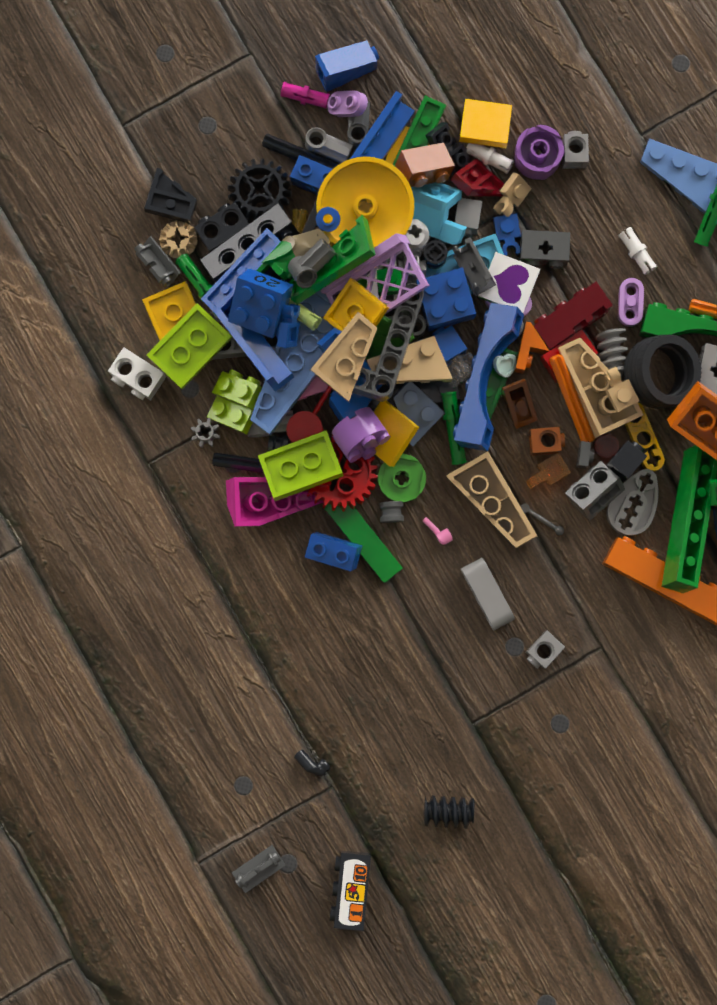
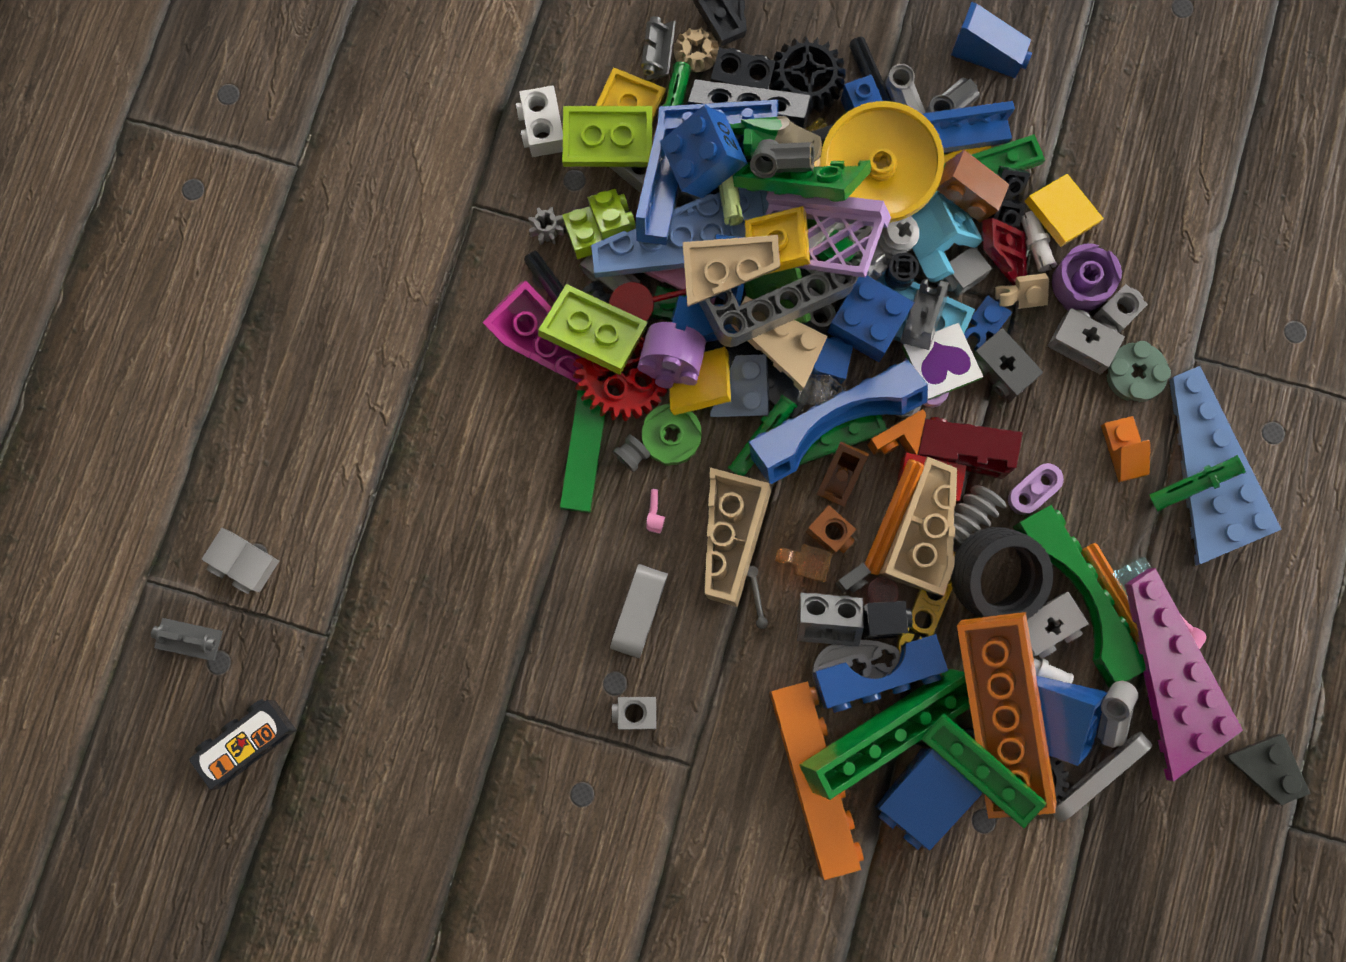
camera: 45 degrees right, 5 degrees down
(241, 797) = (240, 561): none -> light grey brick
(288, 329) = (704, 199): blue plate -> none
(304, 95) = (929, 38): dark pink pin -> none
(310, 766) = (327, 599): black arm -> none
(325, 411) = (665, 308): none -> green plate
(331, 226) = (836, 146): blue plate -> none
(333, 551) = (544, 433): blue brick -> none
(347, 103) = (958, 75): lavender plate -> none
(449, 811) = (397, 765): black piece -> none
(505, 365) = (864, 428): light aqua piece -> none
(565, 197) = (1071, 336): none -> light grey brick
(608, 184) = (1150, 360): none -> sand green plate
(621, 393) = (942, 554): tan plate -> none
(637, 251) = (1088, 451): white pin -> none
(656, 228) = (1126, 450): none -> orange slope
(665, 465) = (917, 661): none -> blue arch

